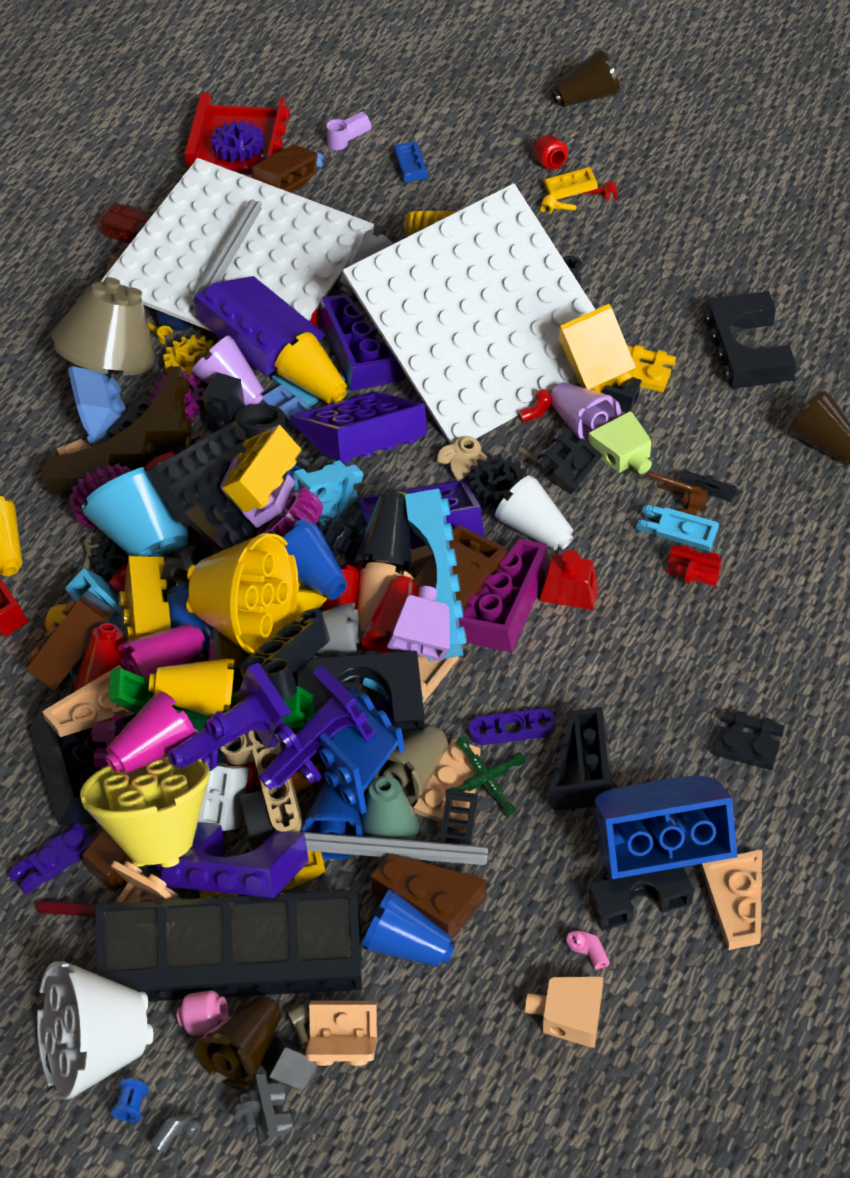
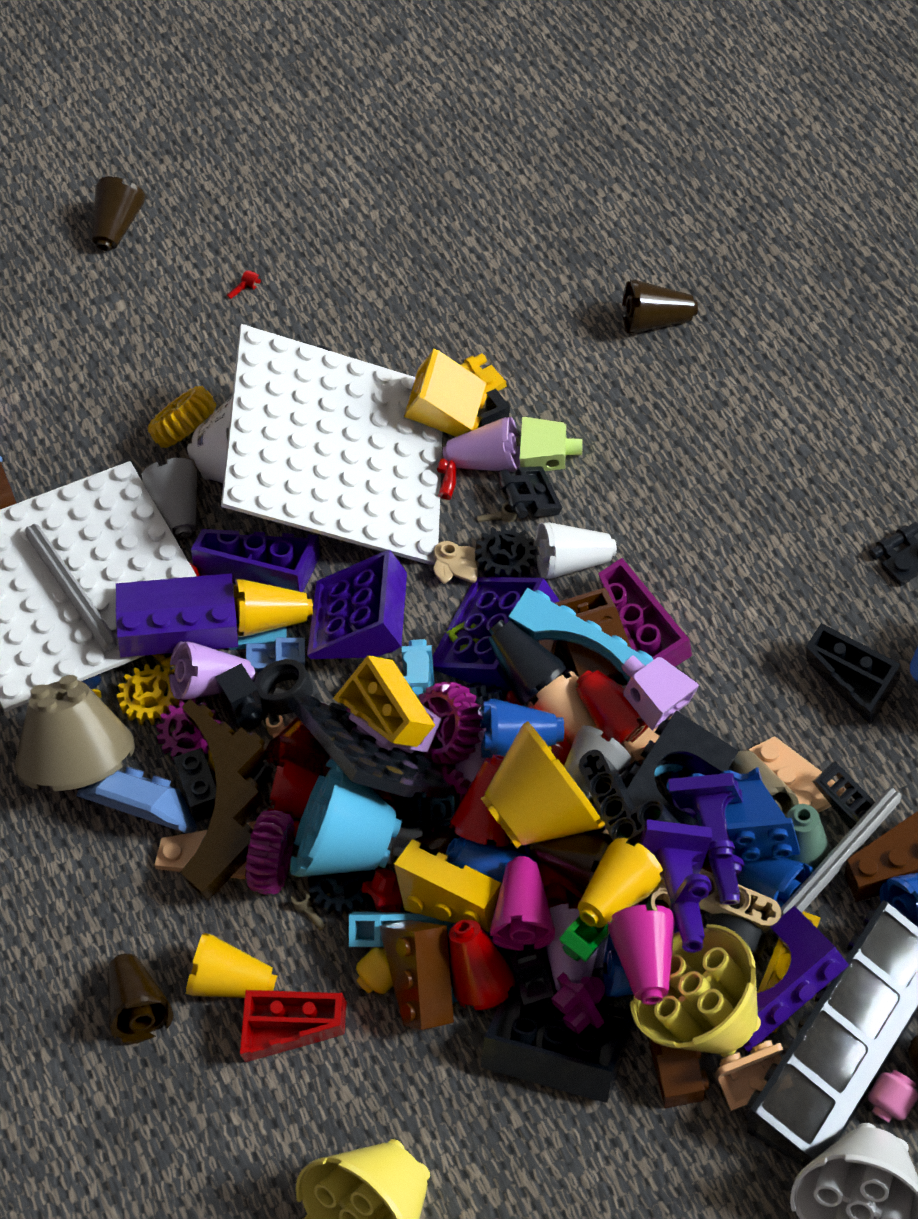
camera: 50 degrees left, 5 degrees up
(52, 858) = (634, 1125): dark purple hinge -> none
(66, 908) = (713, 1133): dark red bar -> none
(84, 708) = (524, 987): light nougat wing -> none
(410, 161) = (69, 392): blue plate -> none
(487, 775) = (808, 748): dark green piece -> none
(519, 718) = (768, 690): dark purple beam -> none
(550, 152) = (166, 289): red head -> none
(552, 203) = (225, 327): yellow hand -> none
(570, 581) = (664, 566): red torso -> none
(571, 183) = (216, 300): yellow plate -> none
(679, 527) = (663, 463): medium azure hinge -> none
(694, 496) = (639, 437): reddish brown plant -> none
(694, 565) = (711, 479): red hips -> none
(722, 491) = (620, 427): black pin -> none
(742, 364) = (532, 317): black arch -> none

